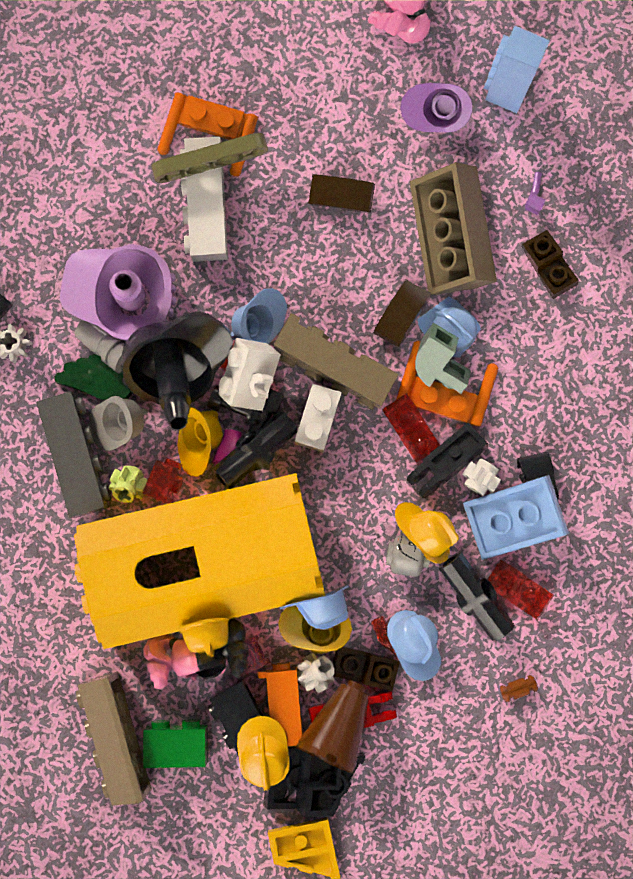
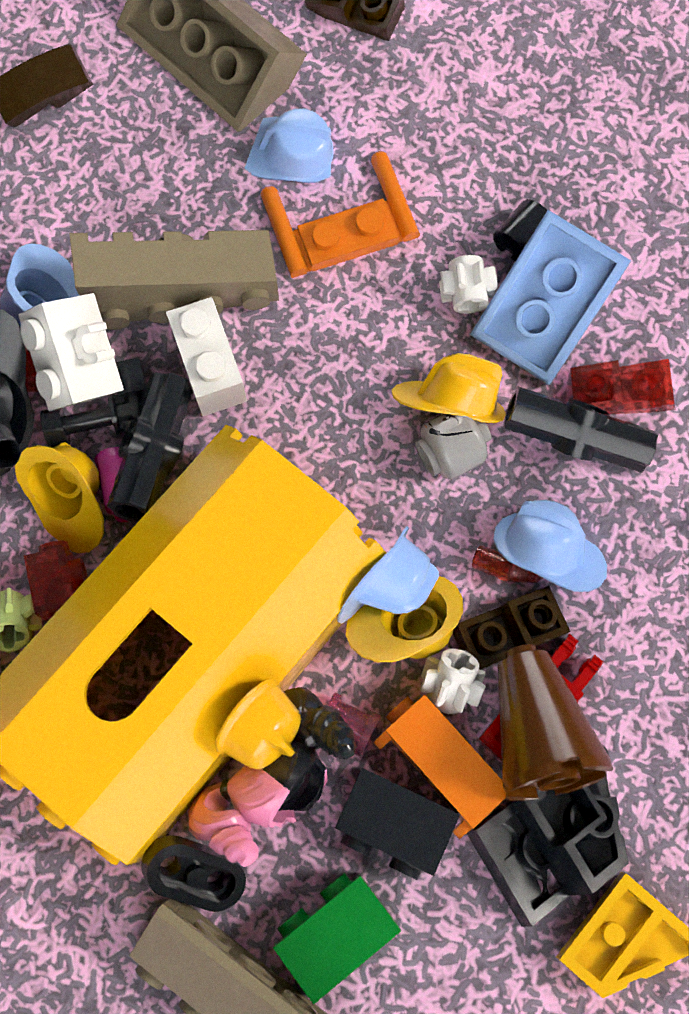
camera: 40 degrees left, 10 degrees down
(128, 668) = (188, 874): none -> black plate
(263, 751) = (465, 844): yellow piece -> none
(401, 313) = (219, 168): dark brown slope -> none
(411, 427) = (335, 290): clear red slope -> none
(435, 360) = (297, 184): brick -> none
(448, 459) = (410, 294): black hinge -> none

